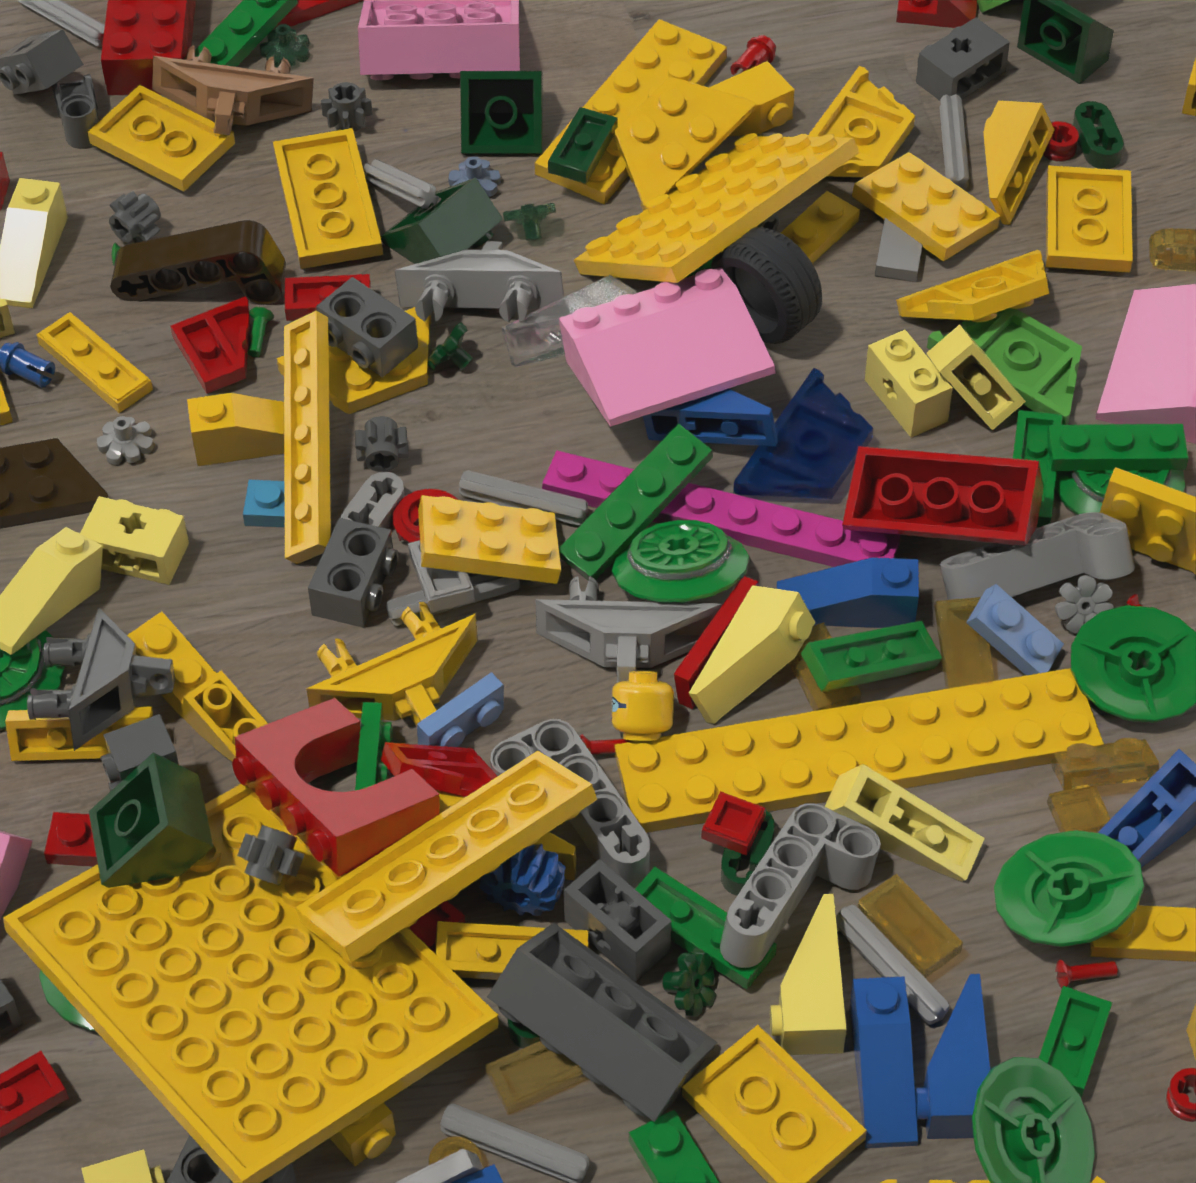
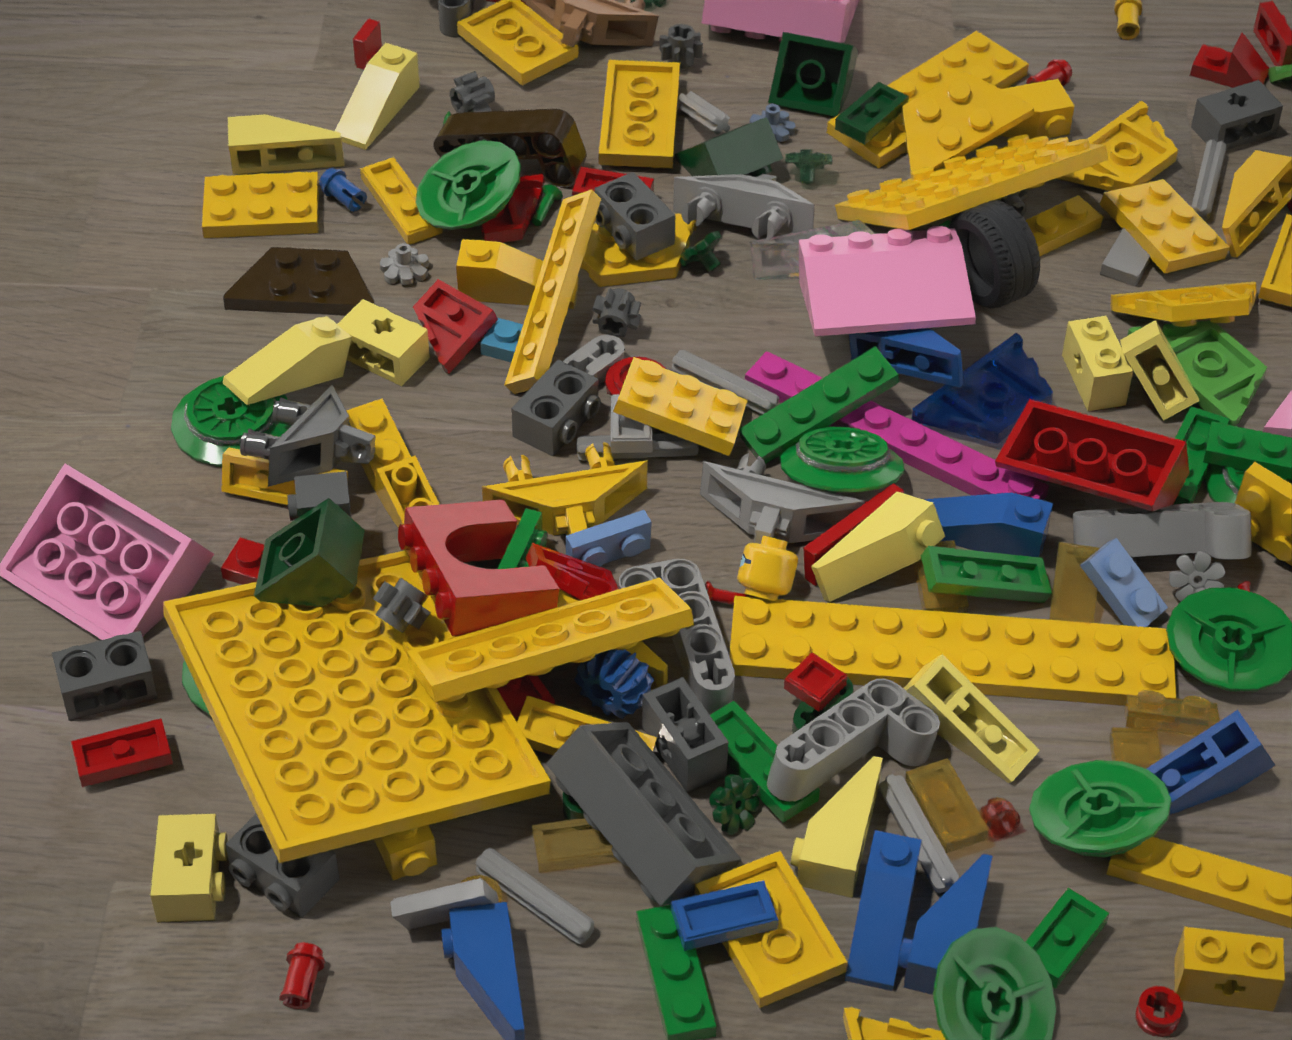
camera: 15 degrees right, 5 degrees down
(145, 331) = (468, 185): none -> green piece
(205, 496) = (452, 322): none -> red wing
(725, 1114) = (724, 915): none -> blue tile
(968, 924) = (998, 826): none -> clear red hinge
(1068, 973) = (1096, 884): red piece -> none

